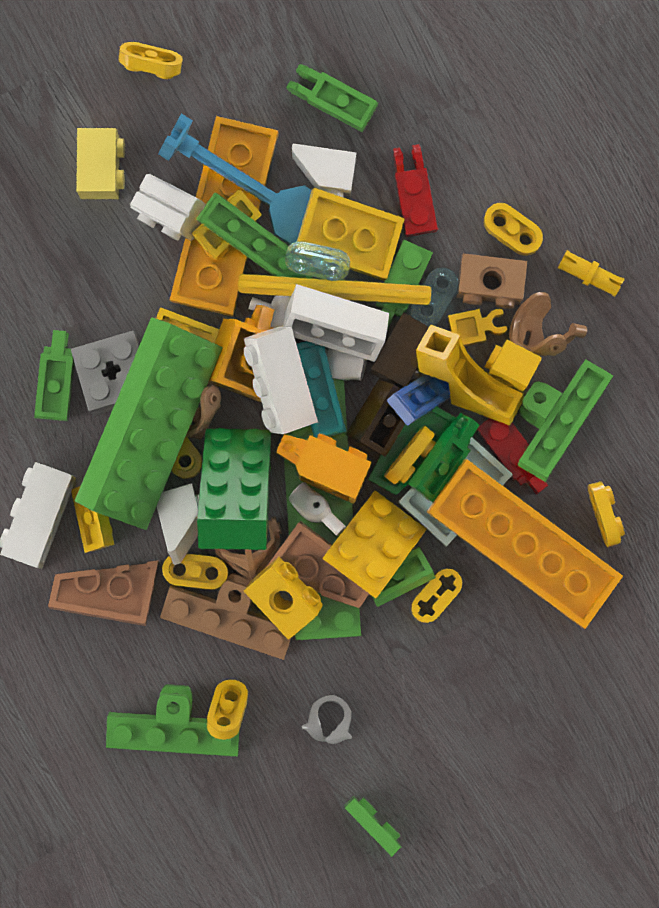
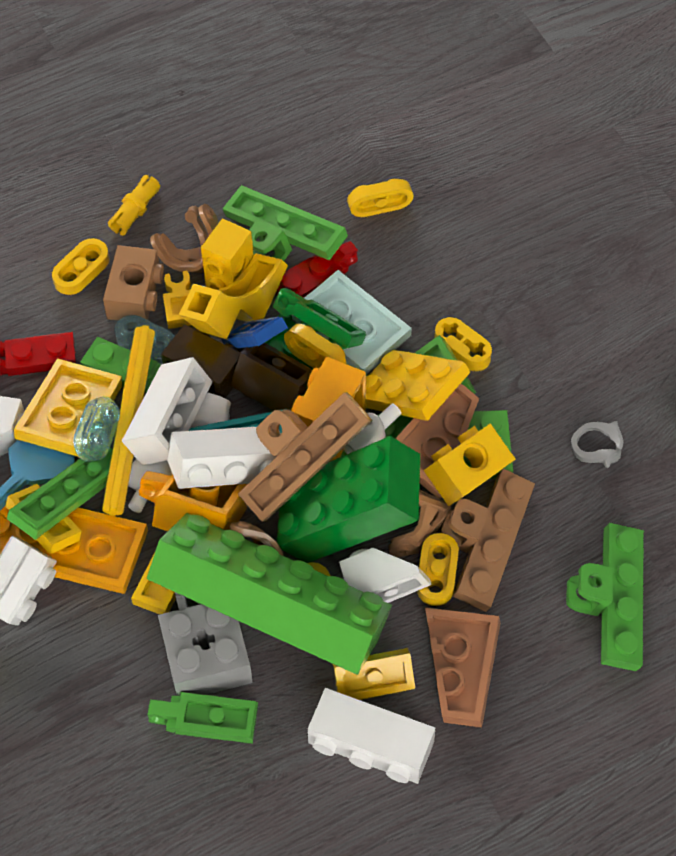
camera: 85 degrees left, 25 degrees down
(224, 711) = (593, 531): yellow plate -> none
(269, 442) = (300, 451): none -> medium nougat plate
(524, 543) = (408, 260): light orange plate -> none

